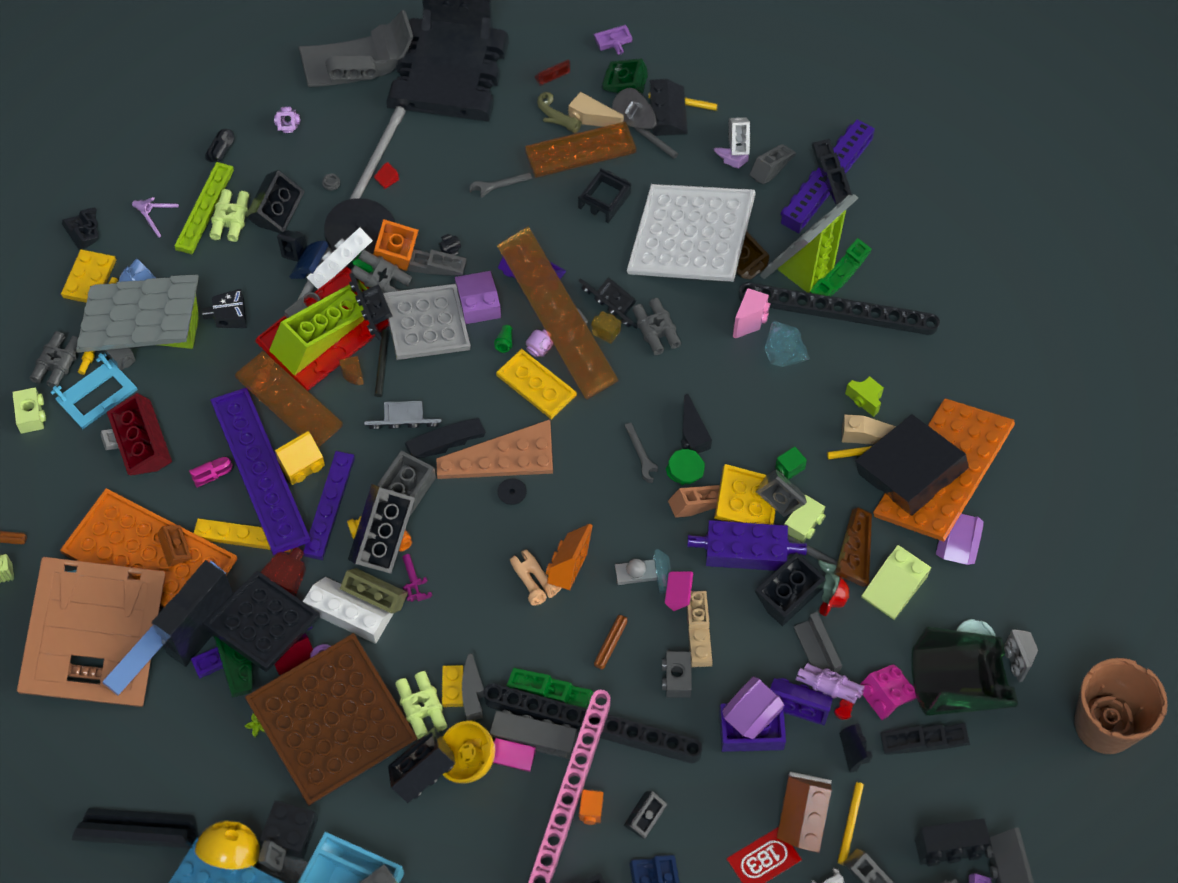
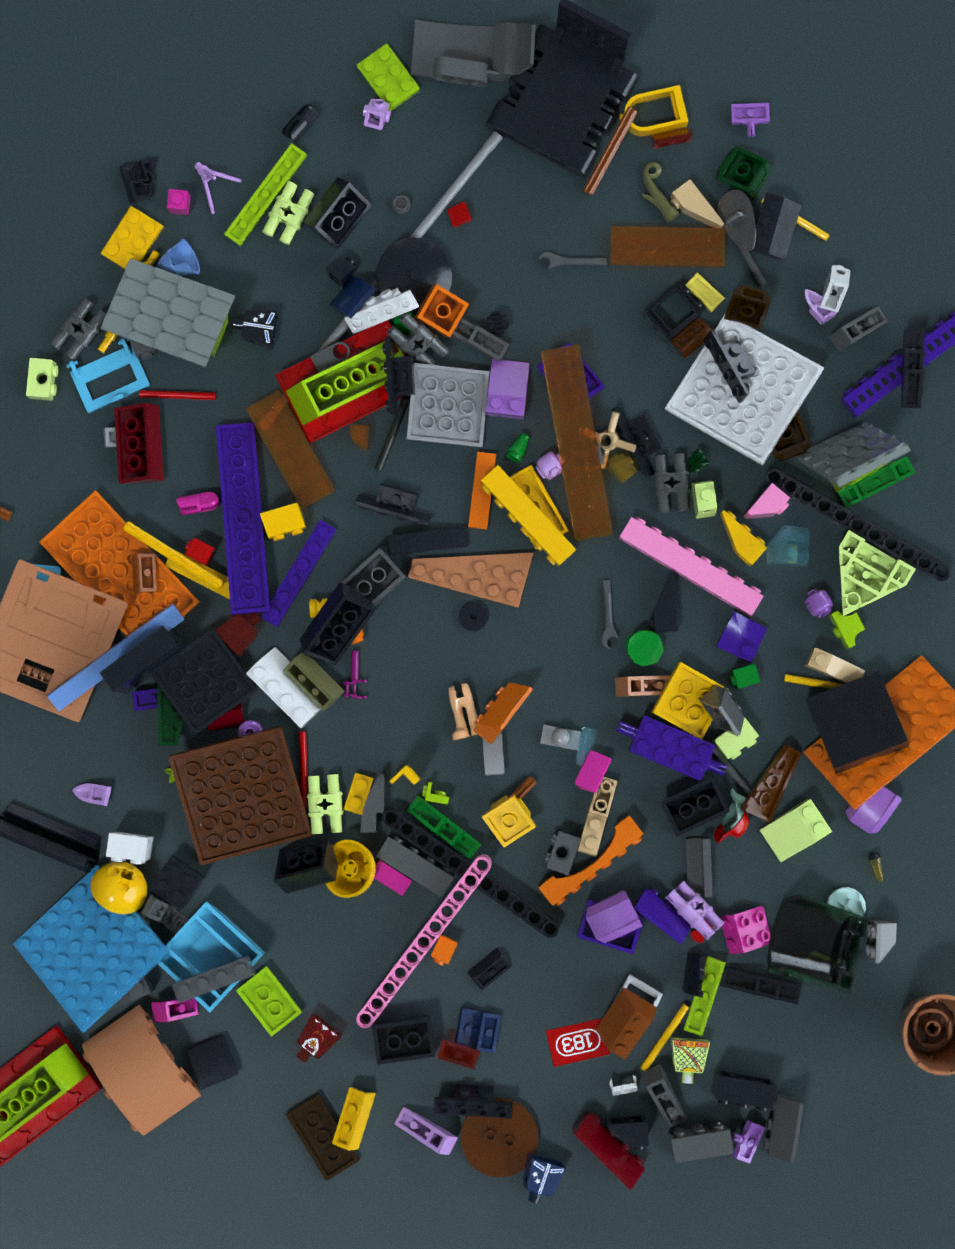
camera: 20 degrees right, 25 degrees up
(124, 233) = (178, 202): none -> dark pink brick
(169, 387) = (177, 394): none -> red bar
(175, 770) = (93, 793): none -> lavender plate
(199, 520) = (173, 555): none -> yellow axle
(225, 510) = (200, 551): none -> red brick
(228, 804) = (129, 846): none -> white brick
(288, 92) = (388, 77): none -> lime plate
(387, 675) = (303, 767): none -> red bar
(483, 384) = (480, 500): none -> orange tile
(495, 641) = (409, 773): none -> yellow panel
(503, 92) = (610, 151): none -> dark orange axle
(526, 45) = (676, 97): none -> yellow window
(533, 662) = (438, 796): none -> lime bracket
(534, 387) = (526, 513): none -> yellow brick
(575, 605) = (494, 756): none -> light grey slope
(592, 306) = (615, 439): none -> tan bar
(612, 656) = (509, 819): none -> yellow panel
(629, 211) = (691, 337): none -> reddish brown slope
(632, 175) = (704, 292): none -> light yellow tile
(669, 165) = (748, 306): none -> dark brown slope
(671, 213) = (732, 363): none -> black bracket
(673, 302) = (697, 461): none -> dark green plant
(684, 709) = (625, 834): none -> orange arch
(689, 324) = (704, 499): none -> yellowish green torso
(702, 387) = (691, 567): none -> bright pink brick
(740, 352) = (743, 542): none -> yellow slope
(772, 433) = (741, 637): none -> dark purple plate
(832, 382) = (818, 603): none -> medium lavender head
(865, 343) = (868, 573): none -> yellowish green wedge
(875, 770) = (702, 1006): none -> lime tile
(883, 831) = (689, 1056): none -> torso
(983, 587) = (875, 861): none -> clear yellow piece

